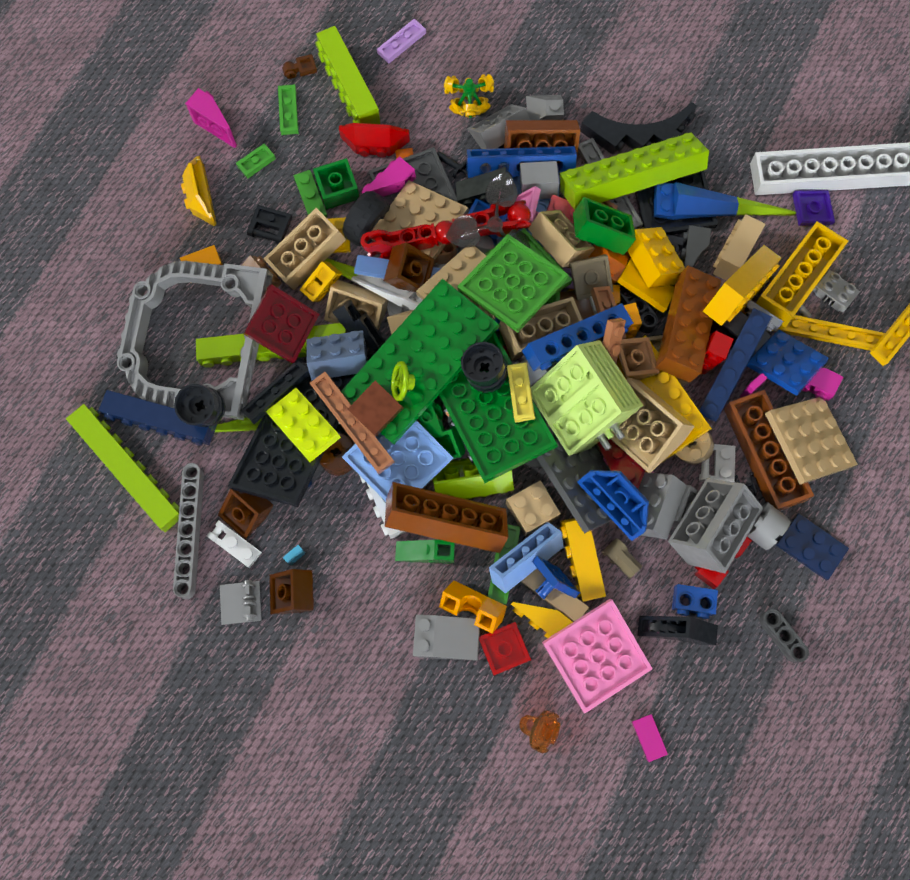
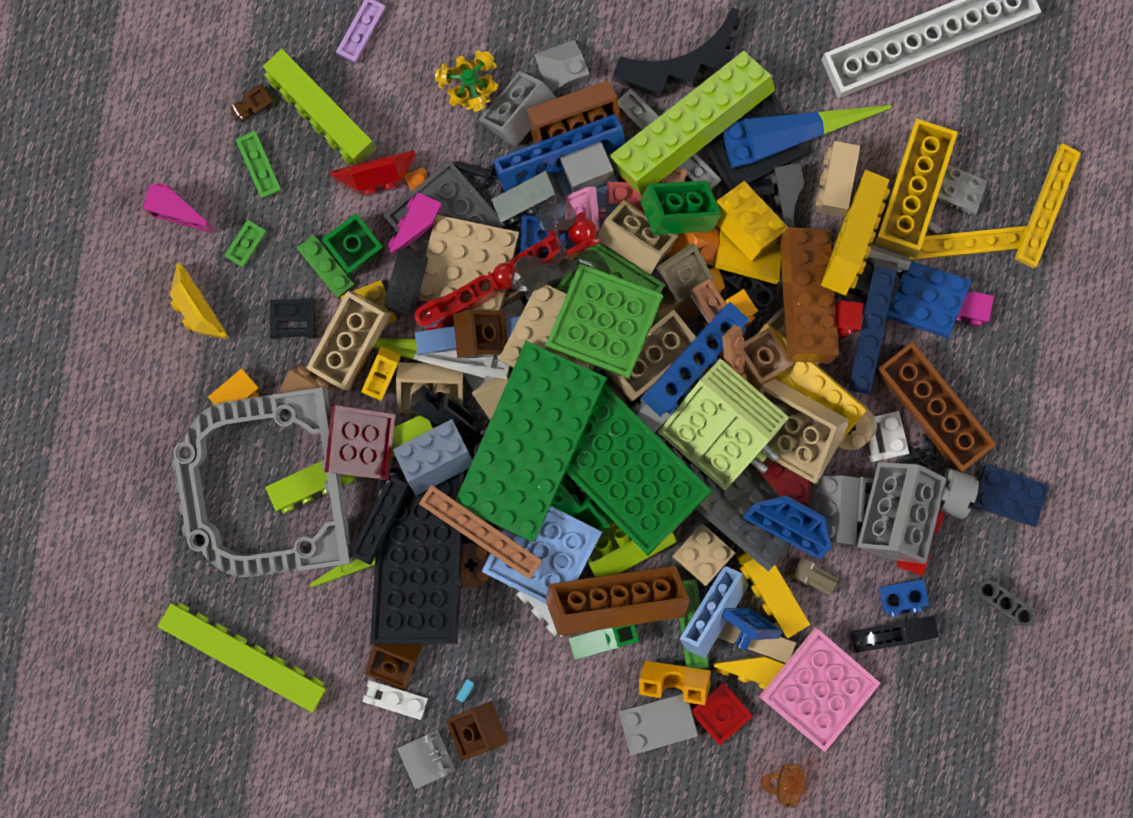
camera: 20 degrees left, 10 degrees up
(152, 416) = (256, 590): dark blue brick -> none
(184, 522) = (333, 694): light grey beam -> none
(190, 401) = (297, 574): black wheel -> none
(303, 424) = (426, 550): neon yellow plate -> none
(375, 408) = (503, 511): copper tile -> none
(401, 379) = (526, 474): lime piece -> none
(481, 357) = (594, 434): black wheel -> none
(521, 392) = (654, 444): light yellow tile -> none
(649, 738) = (898, 753): dark pink tile -> none
(754, 385) = (899, 340): dark pink tile -> none
(811, 439) = (977, 380): tan plate -> none
(813, 207) = (908, 94): dark purple tile -> none

